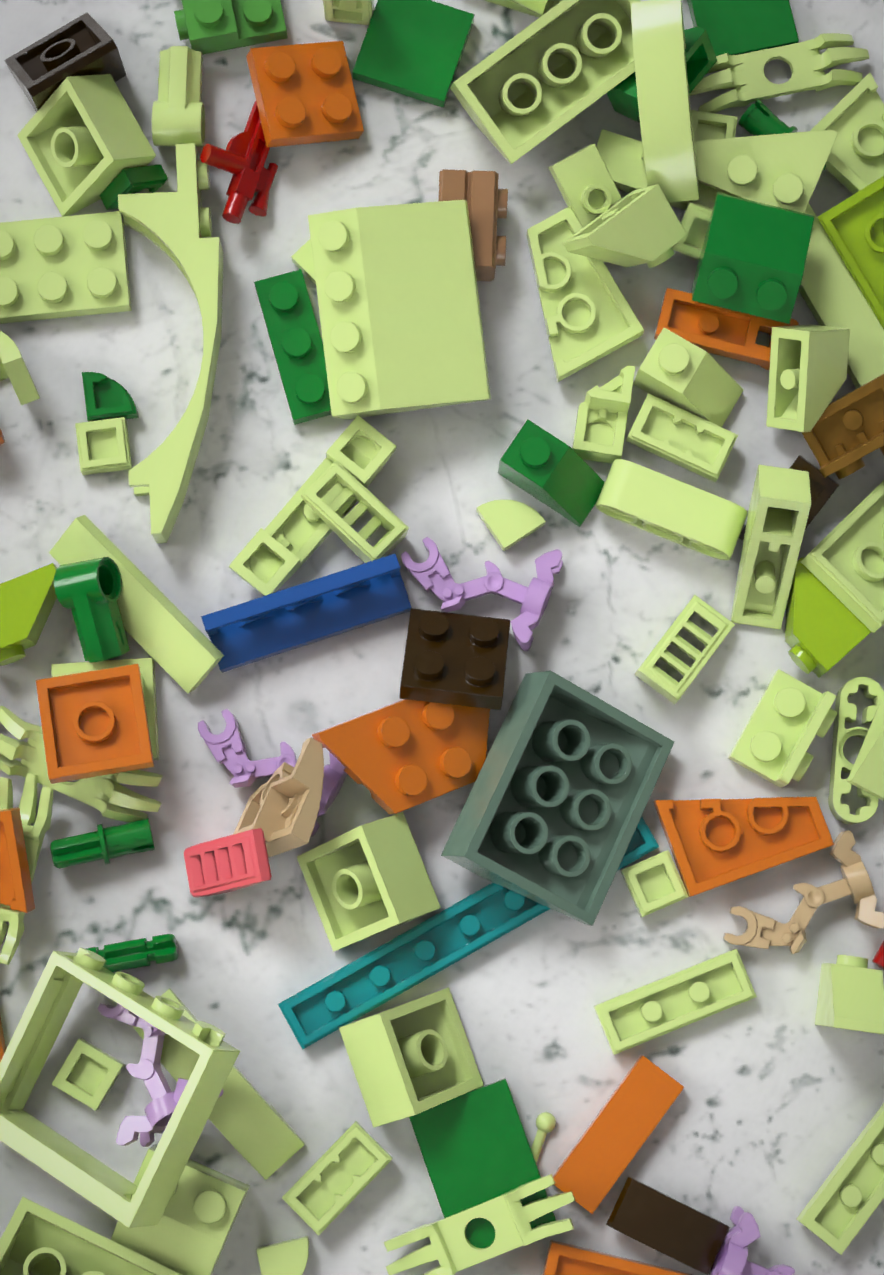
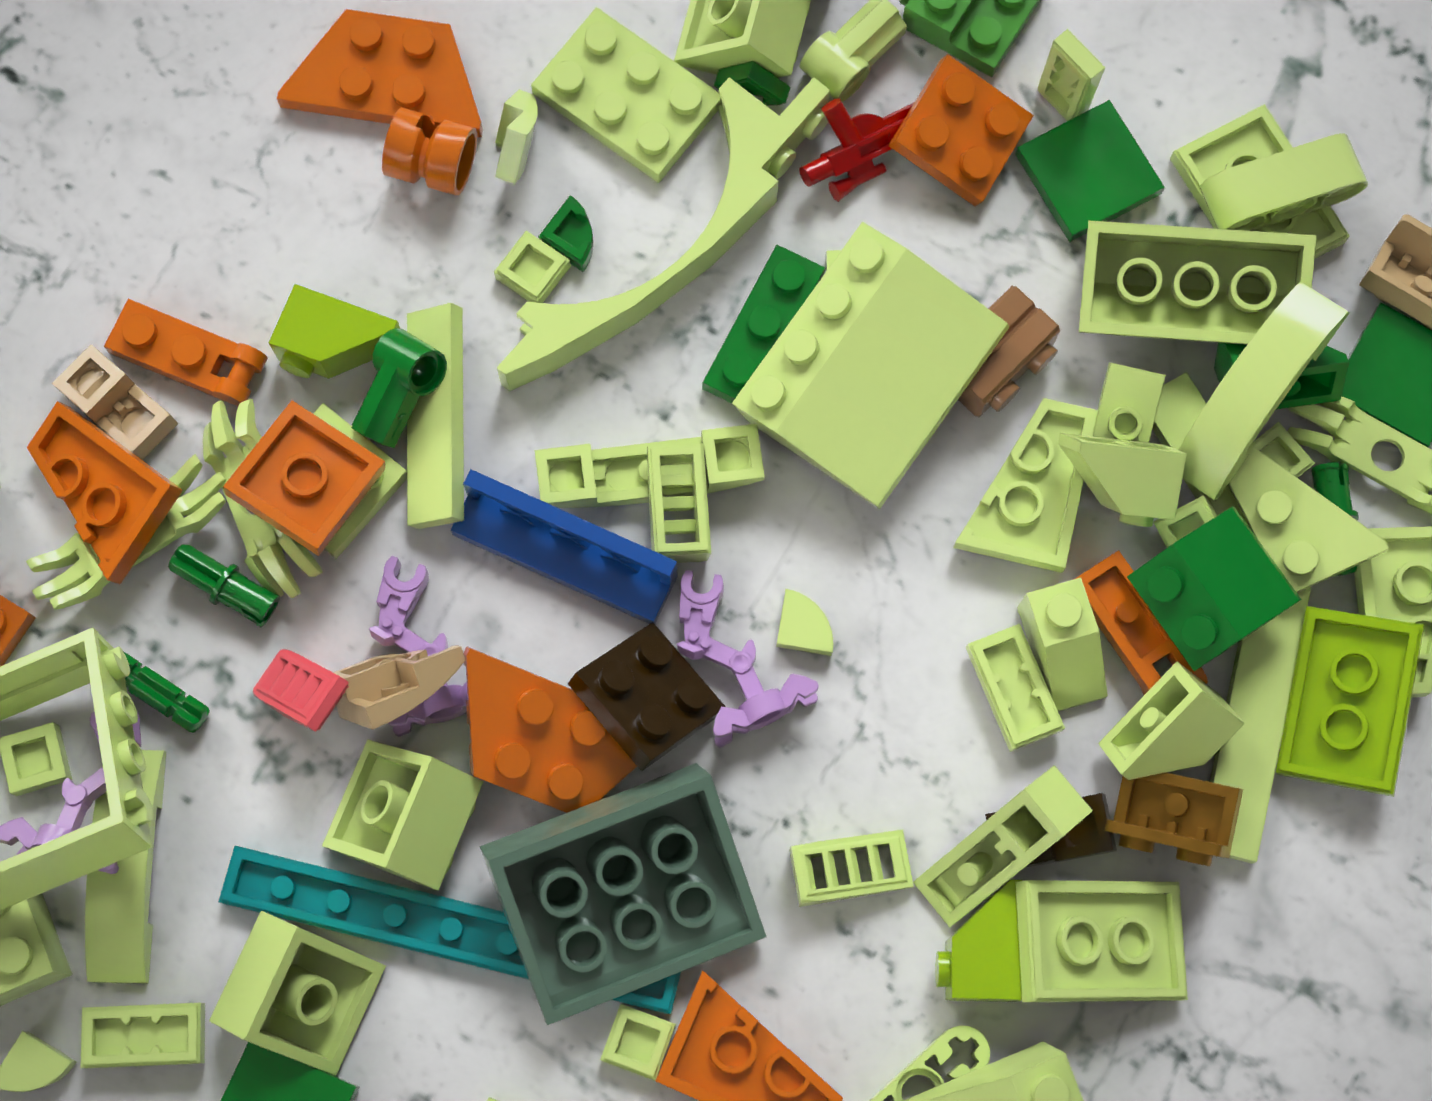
camera: 45 degrees right, 5 degrees down
(551, 473) = (875, 617): green slope -> none
(603, 419) = (962, 614): yellowish green slope -> none
(671, 509) = (949, 740): yellowish green beam -> none
(783, 729) = (871, 1013): yellowish green bracket -> none

